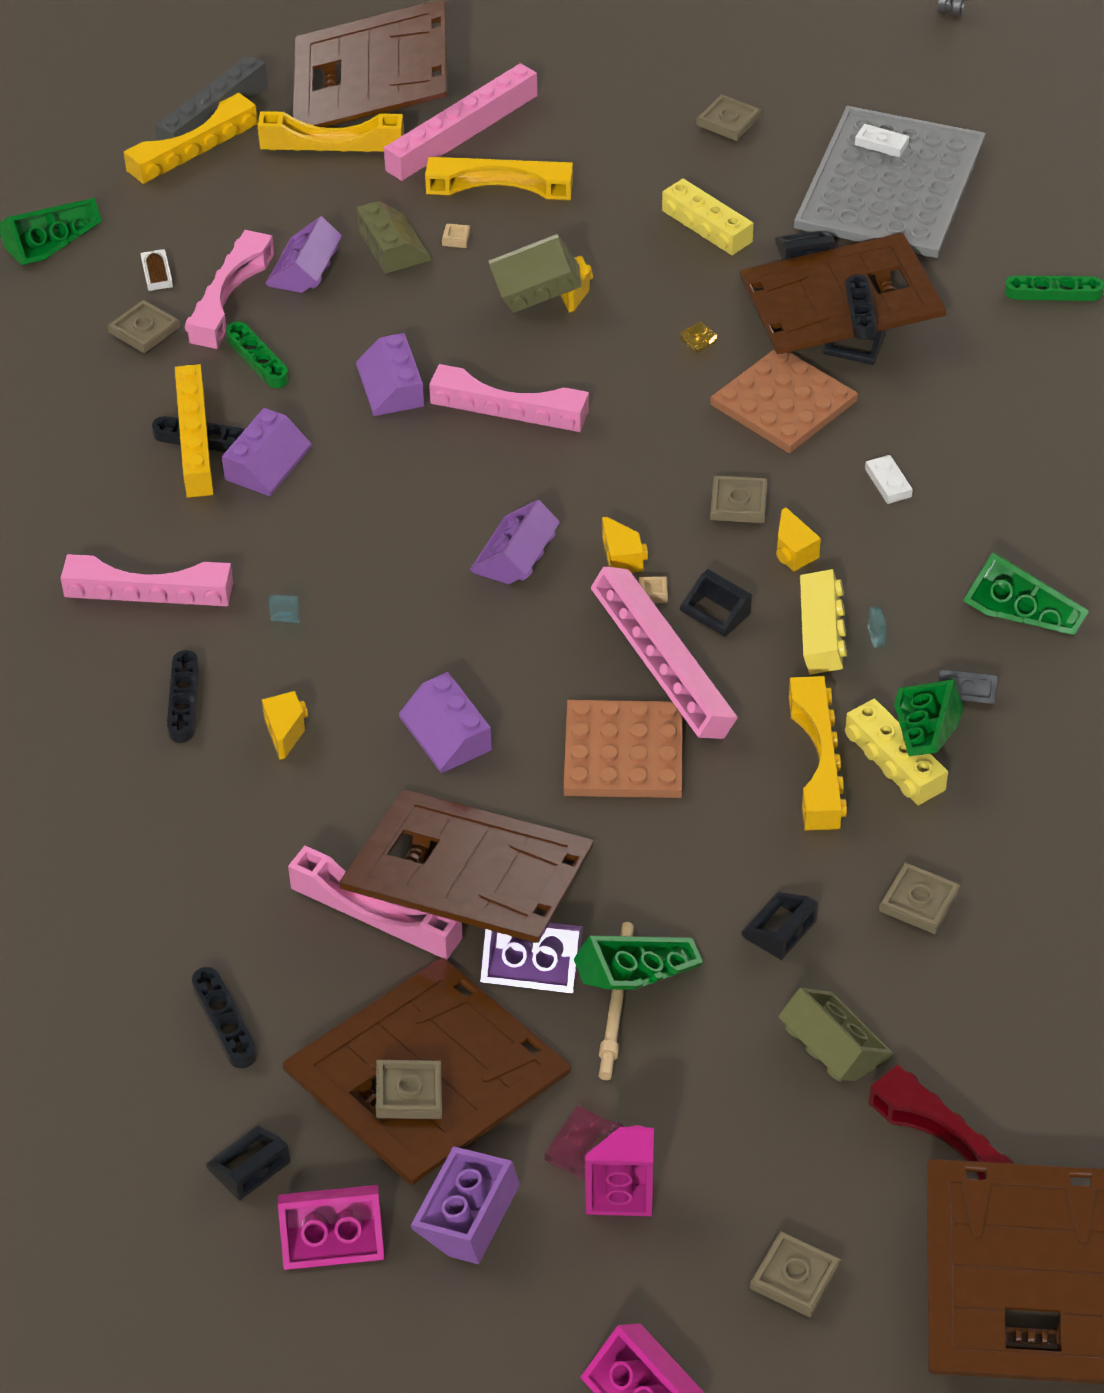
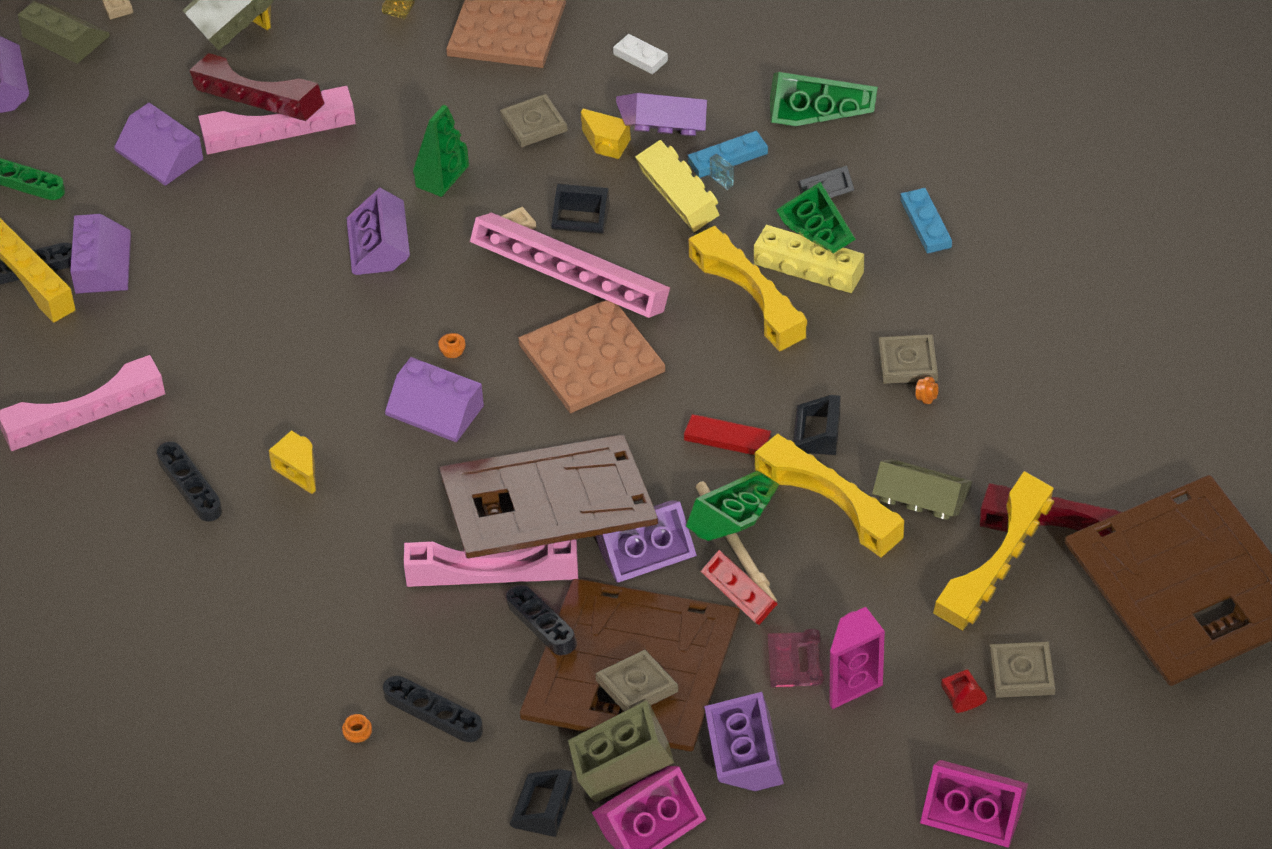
camera: 30 degrees left, 0 degrees up
(143, 994) = (356, 722): none -> orange plate
(284, 608) = (222, 372): clear light blue tile -> none
(341, 1149) = (620, 752): none -> olive slope
(377, 981) = (538, 621): none -> black beam
(504, 679) = (452, 345): none -> orange plate
(524, 381) = (290, 98): none -> dark red arch
(584, 1045) = (739, 587): none -> tile
(619, 489) = (441, 155): none -> green wedge
(623, 546) = (468, 198): yellow slope -> none
(690, 889) = (725, 434): none -> red tile
(720, 947) = (789, 465): none -> yellow arch
(722, 1265) = (963, 691): none -> red tile
(792, 1167) = (964, 594): none -> yellow arch
(856, 546) = (663, 113): none -> medium lavender slope
(901, 612) = (733, 151): none -> dark azure plate
(913, 938) = (926, 390): none -> orange plate
(1044, 767) = (926, 220): none -> dark azure plate

